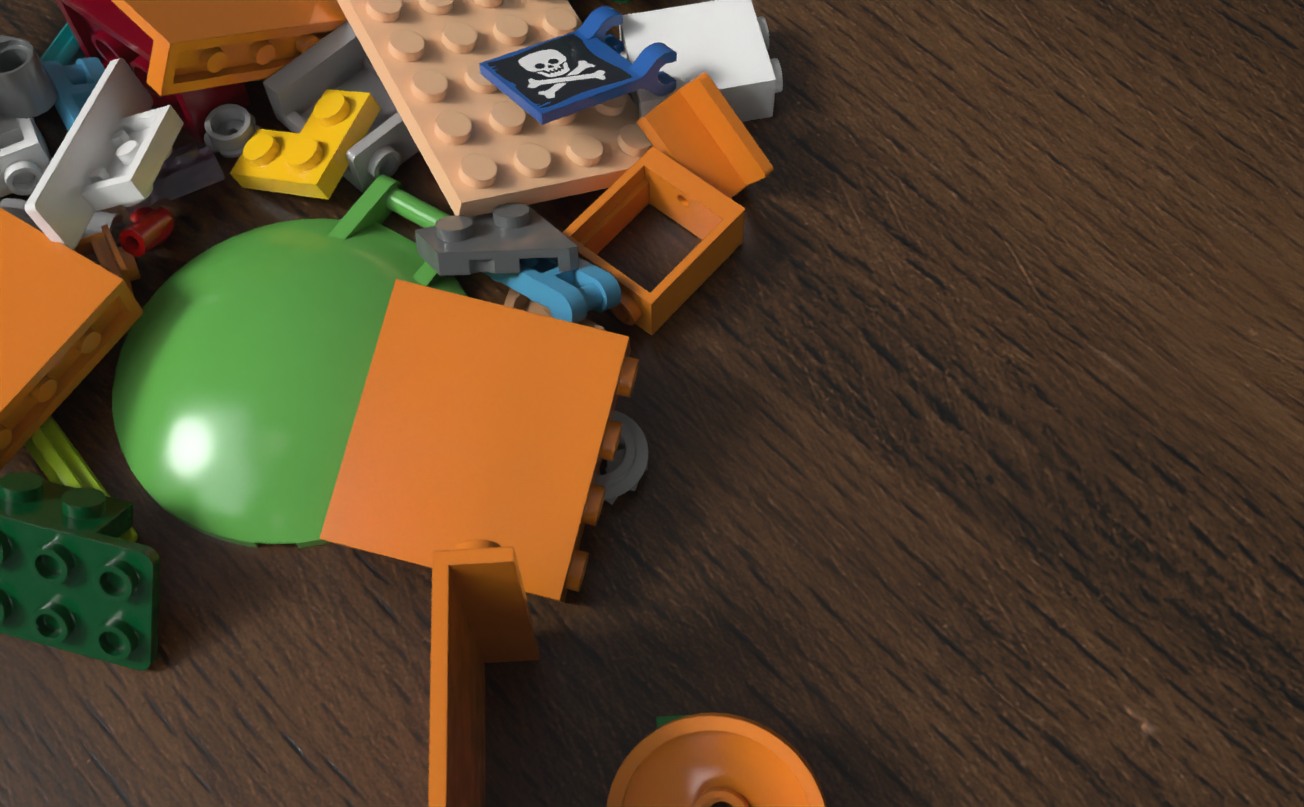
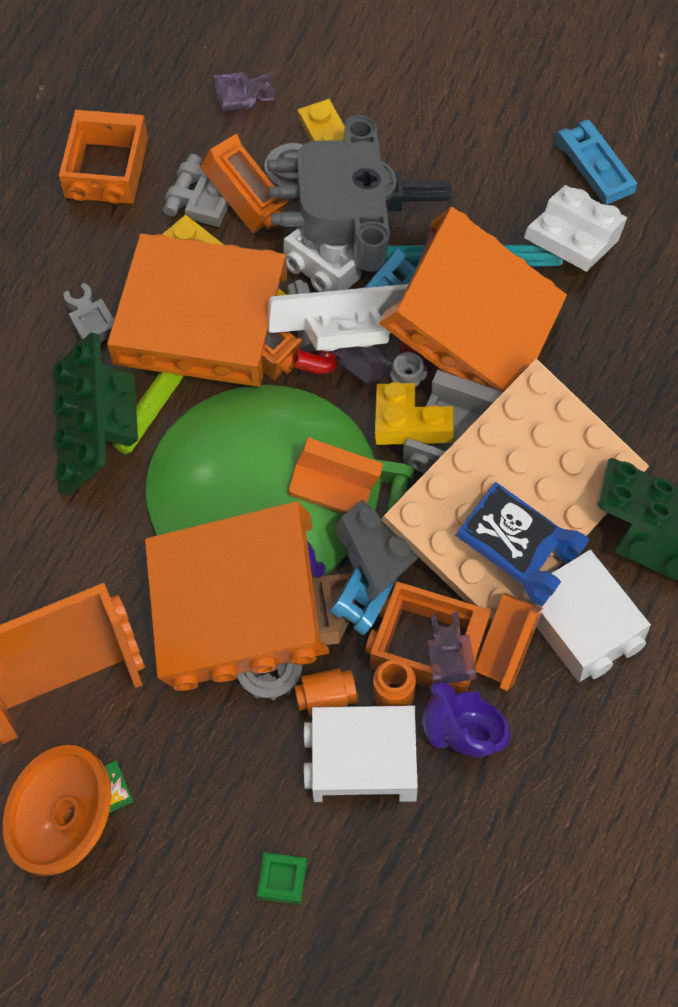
camera: 70 degrees right, 0 degrees up
(356, 253) = (332, 476): none -> orange panel
(672, 390) = (326, 689): none -> orange brick
(704, 204) = (450, 653): none -> clear purple plate
(705, 298) = (394, 684): none -> orange brick
(782, 375) = (362, 751): none -> white panel
(791, 242) = (464, 722): none -> dark purple hair
(919, 545) = (282, 878): none -> green tile

